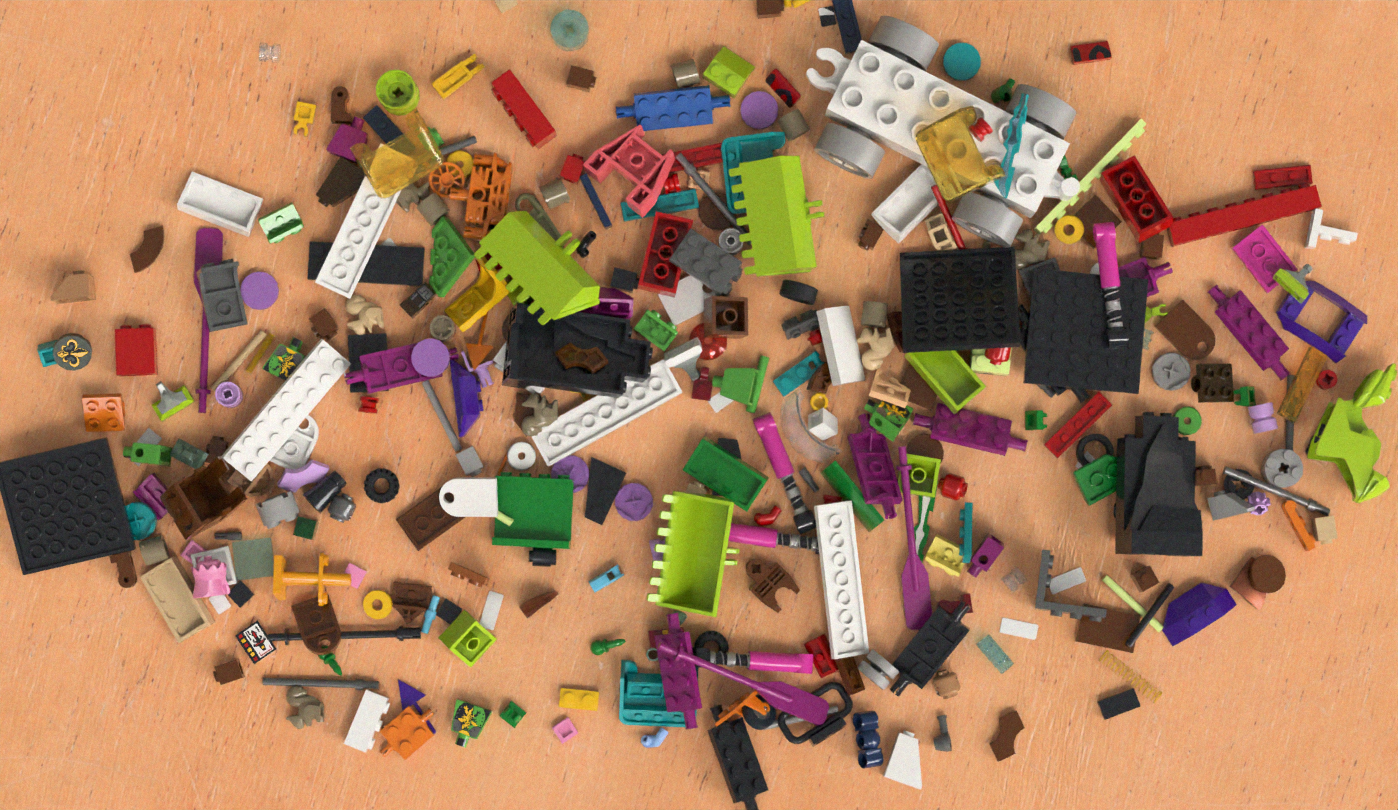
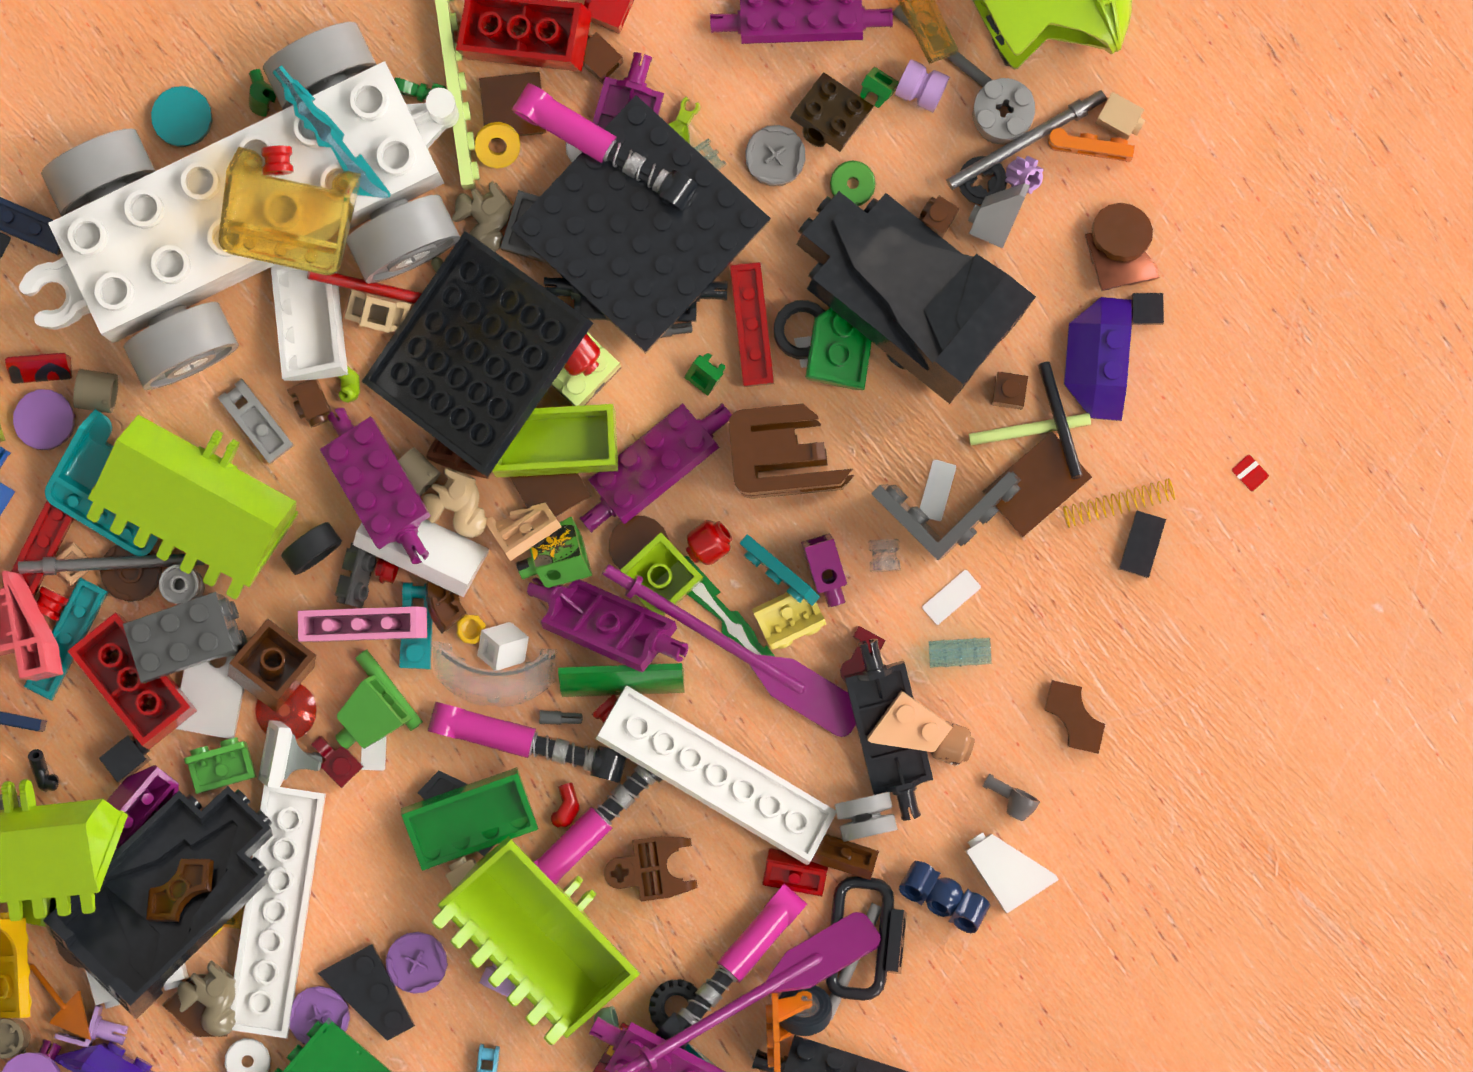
camera: 35 degrees left, 0 degrees up
(780, 346) = (362, 624): none -> bright pink brick
(839, 216) = (256, 422): none -> light grey plate
(855, 300) = (376, 484): none -> magenta plate
(892, 249) = (349, 386): none -> lime arm
(940, 657) = (909, 726): none -> light nougat wing
(1025, 477) = (767, 441): none -> reddish brown piece
(1186, 330) = (738, 96): reddish brown tile -> none
(1196, 730) = (1250, 473): none -> red sticker
(1238, 616) = (1147, 309): none -> black tile

